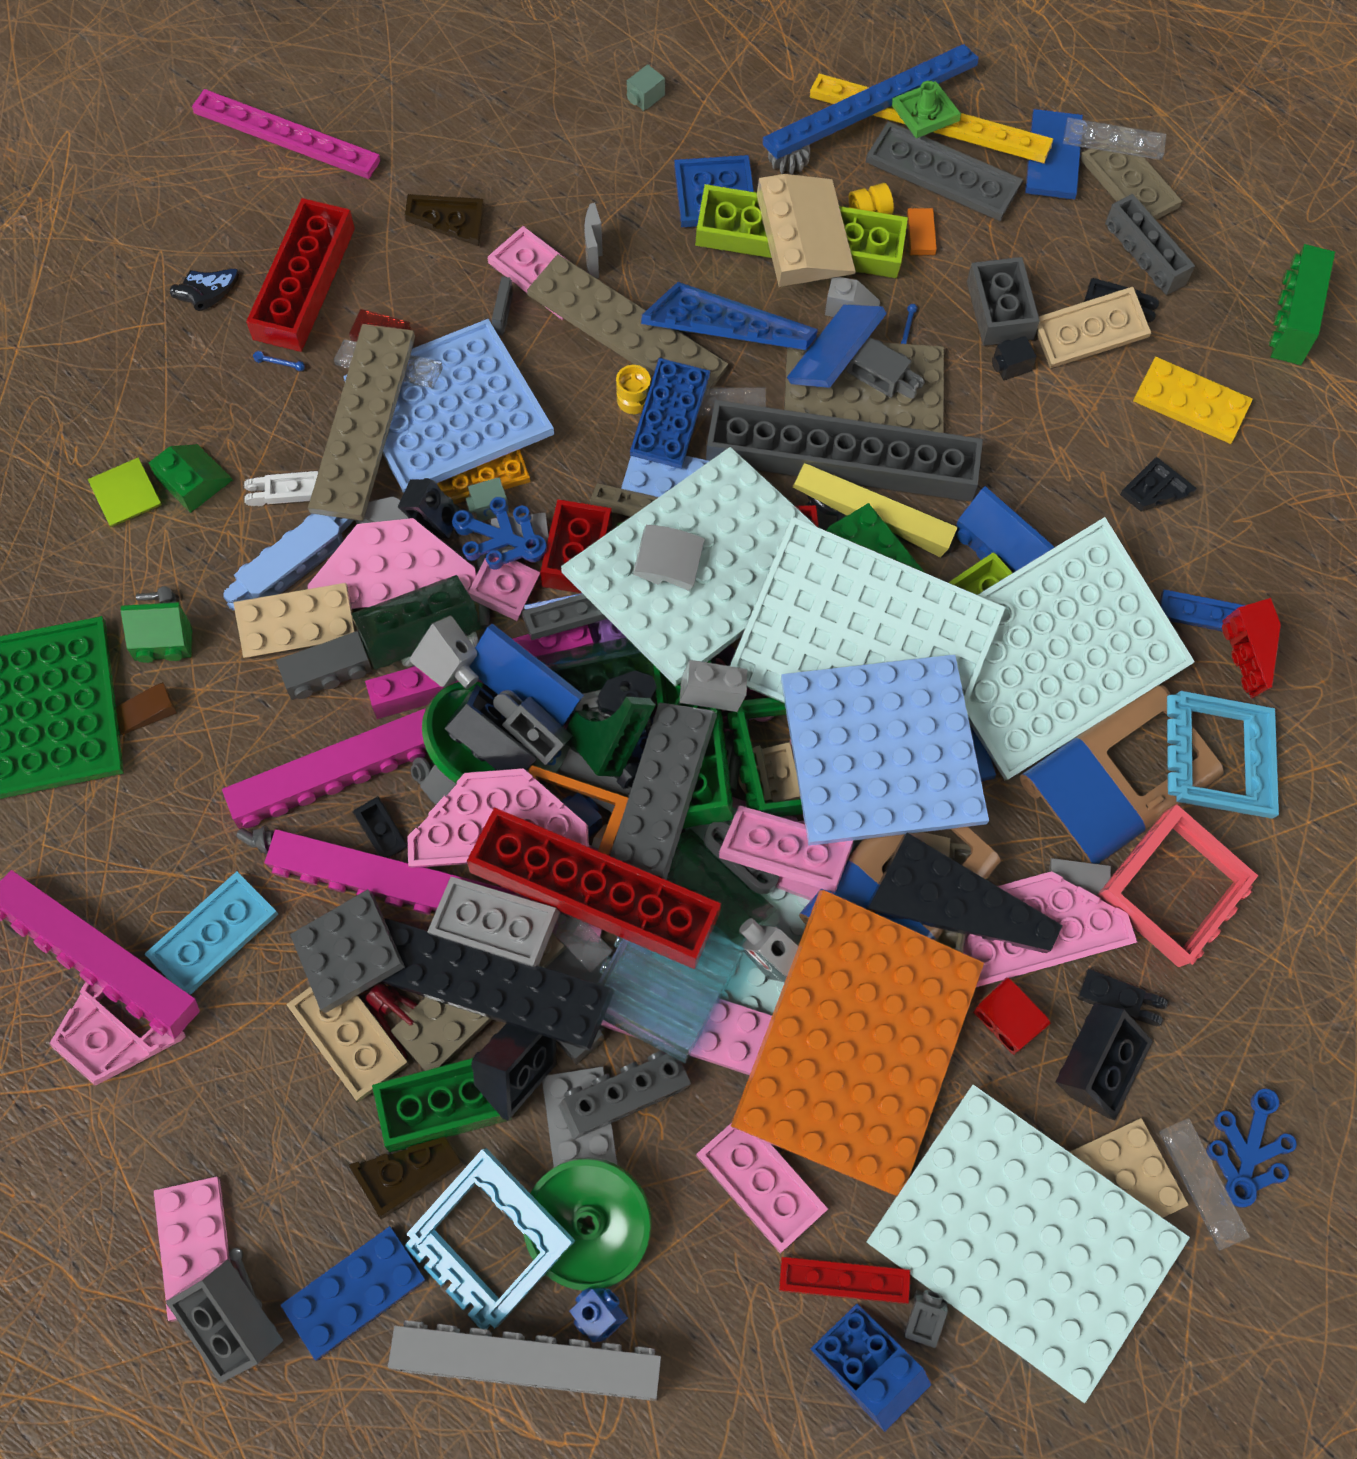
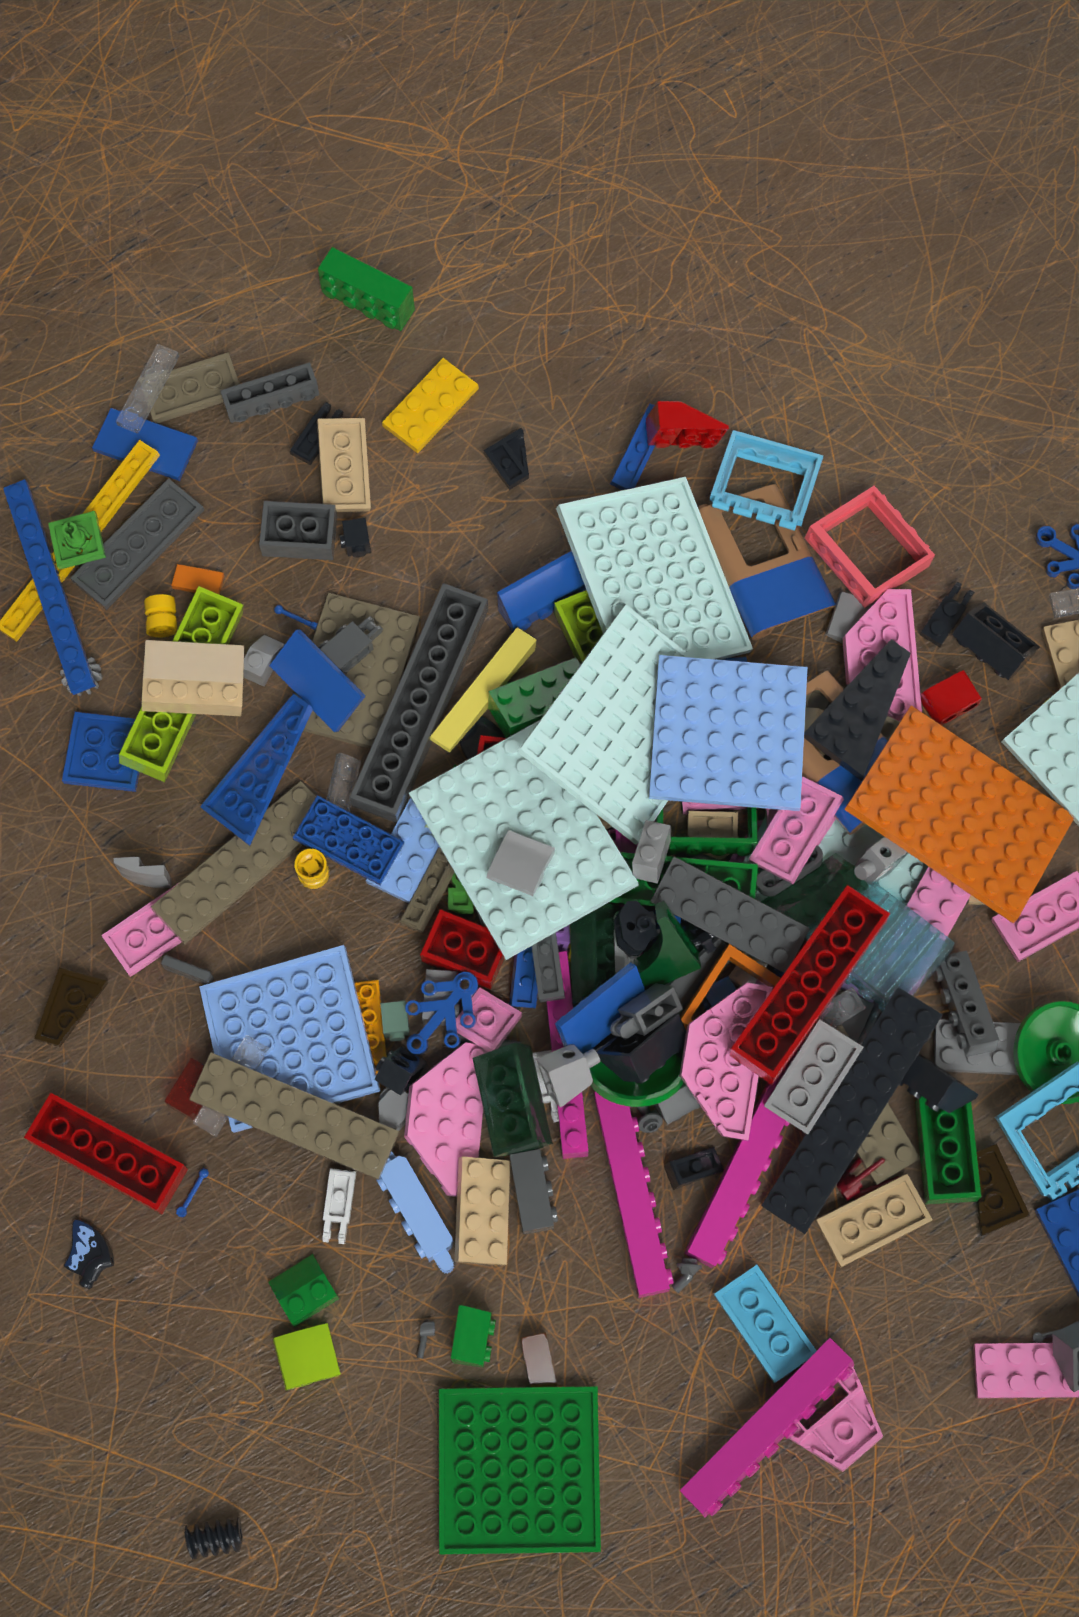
camera: 75 degrees left, 5 degrees up
(347, 951) = (808, 1206): dark grey plate -> none

